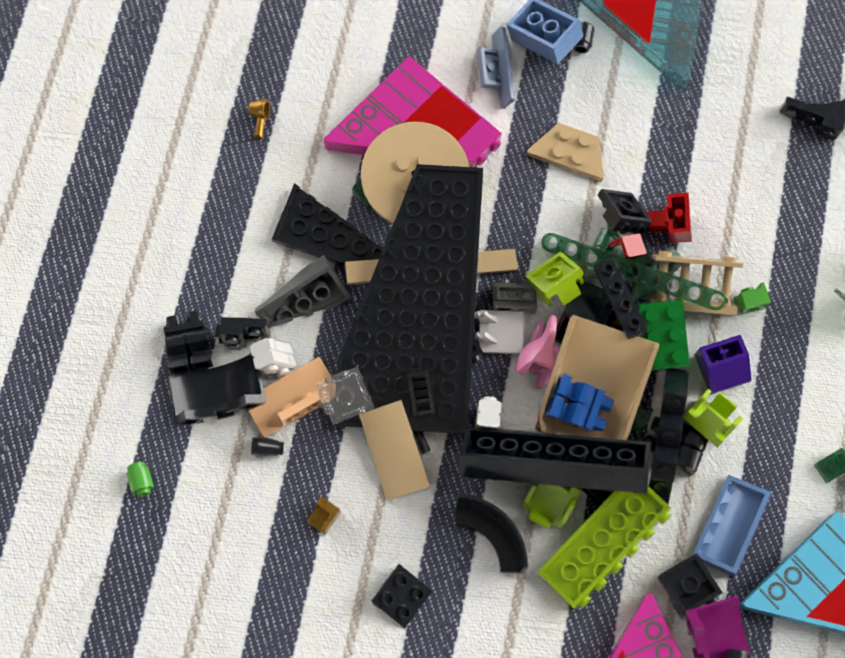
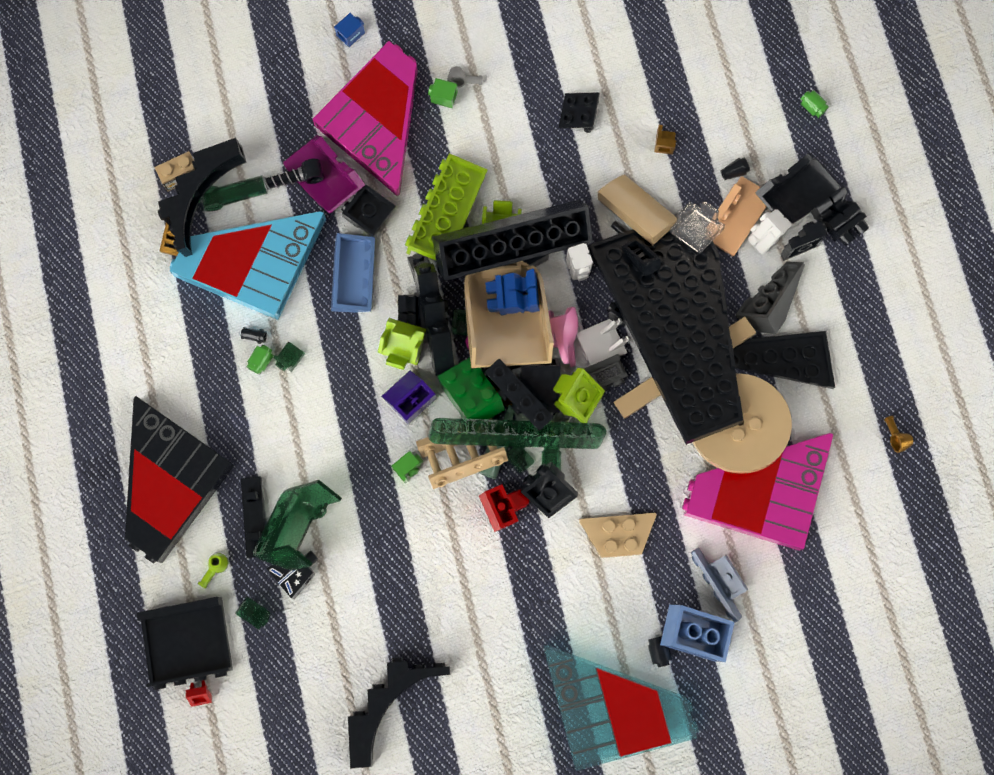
camera: 160 degrees right, 5 degrees up
(497, 528) = (531, 187): black panel -> none
(631, 245) = (530, 458): panel -> none

